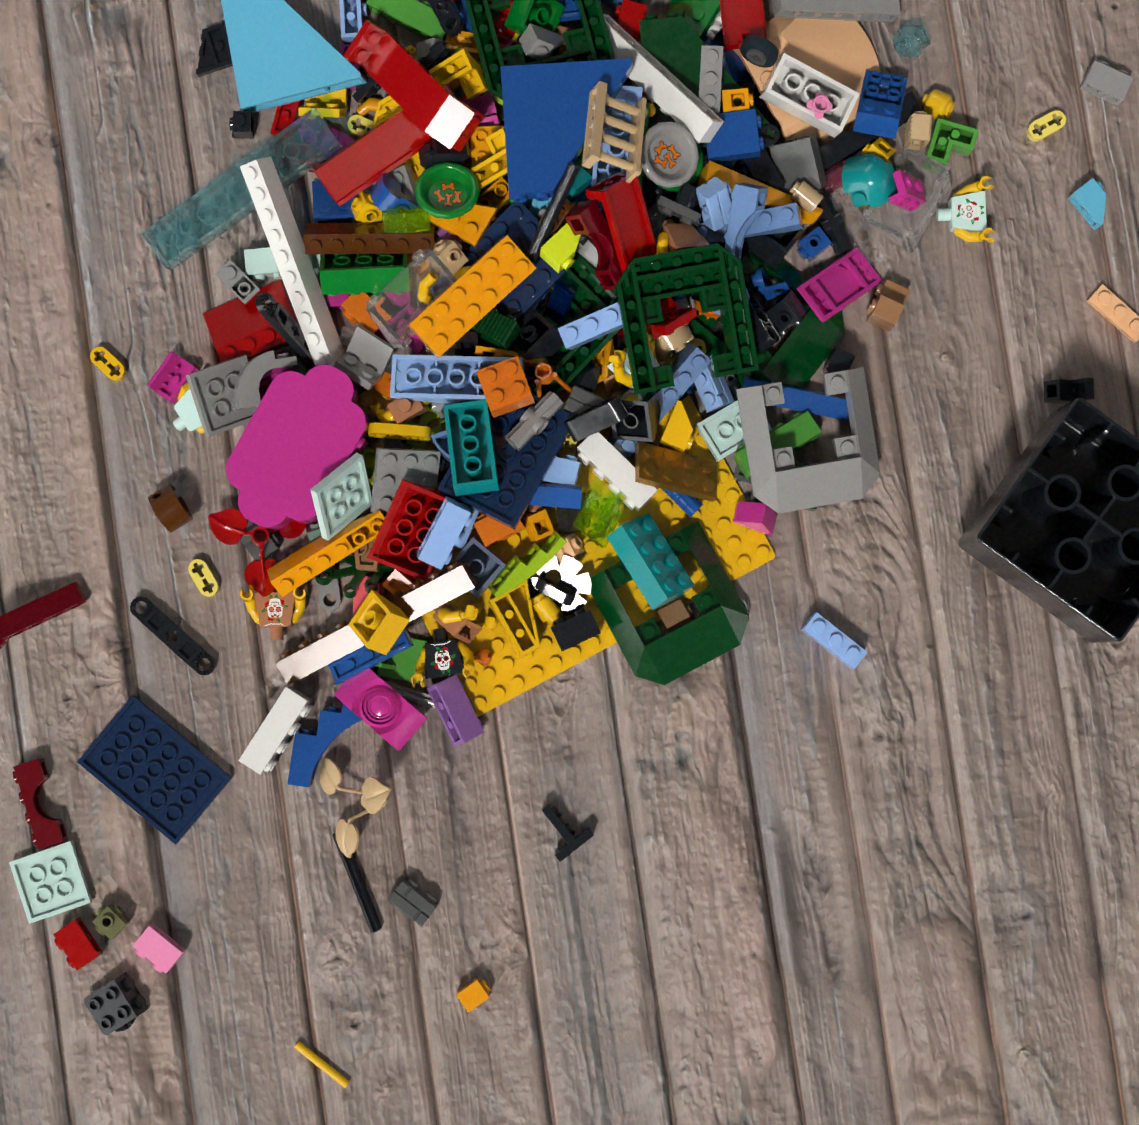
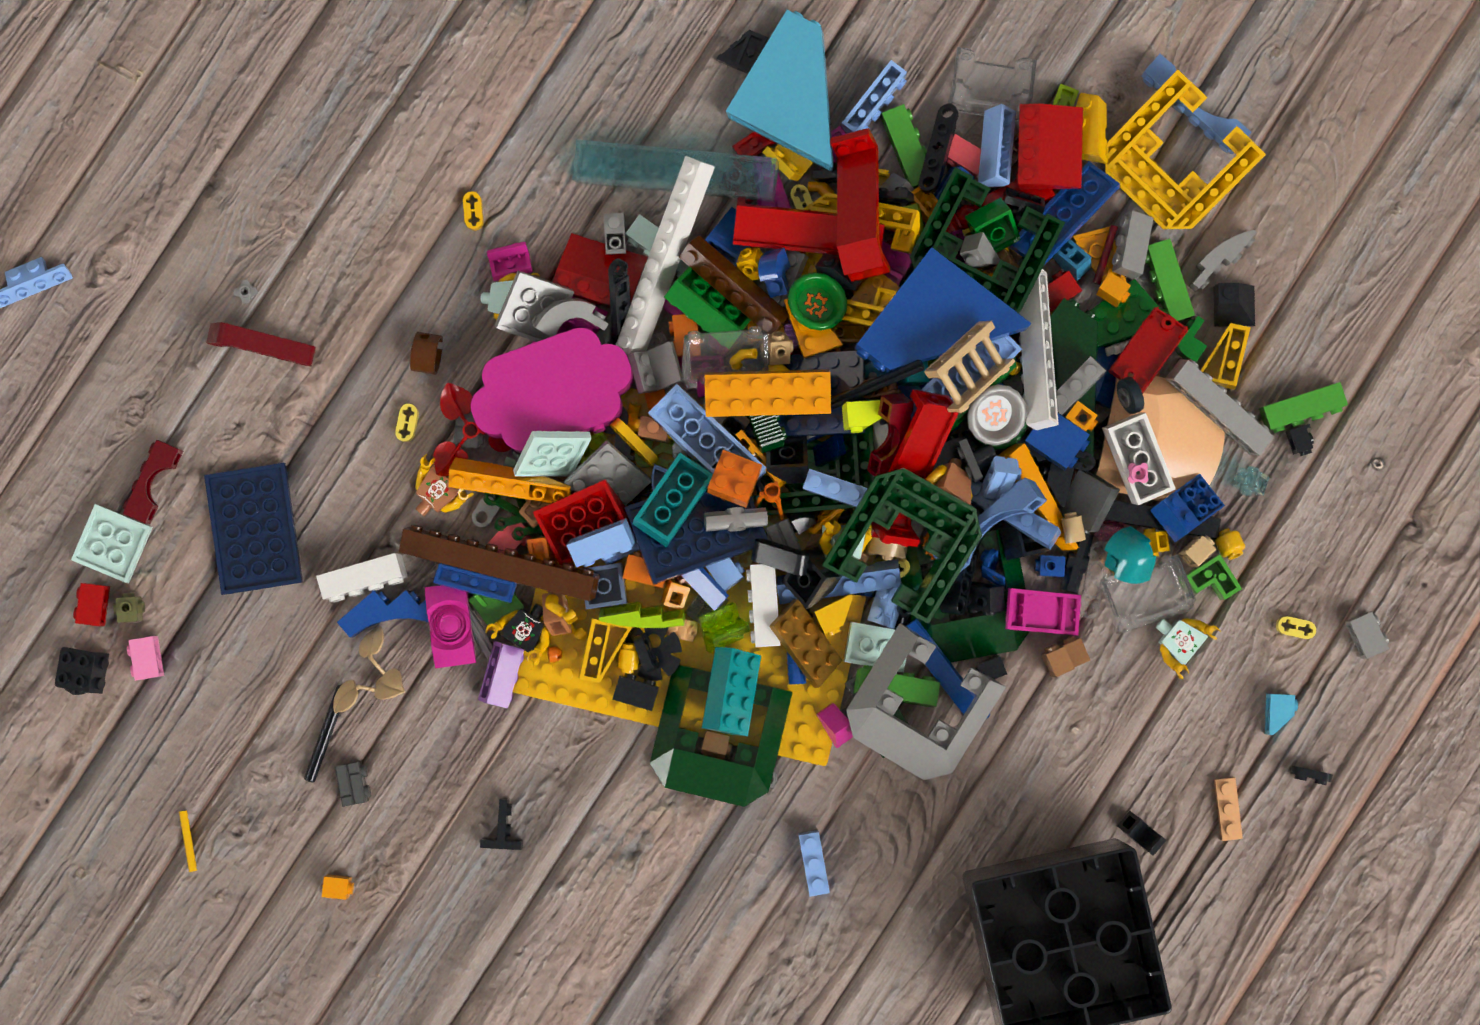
camera: 45 degrees right, 0 degrees up
(183, 647) = (348, 429): black piece -> none
(242, 125) = (717, 123): black brick -> none
(378, 623) = (499, 566): yellow slope -> none
(404, 221) = (767, 296): clear neon green slope -> none
(910, 191) = (1152, 589): dark pink bracket -> none

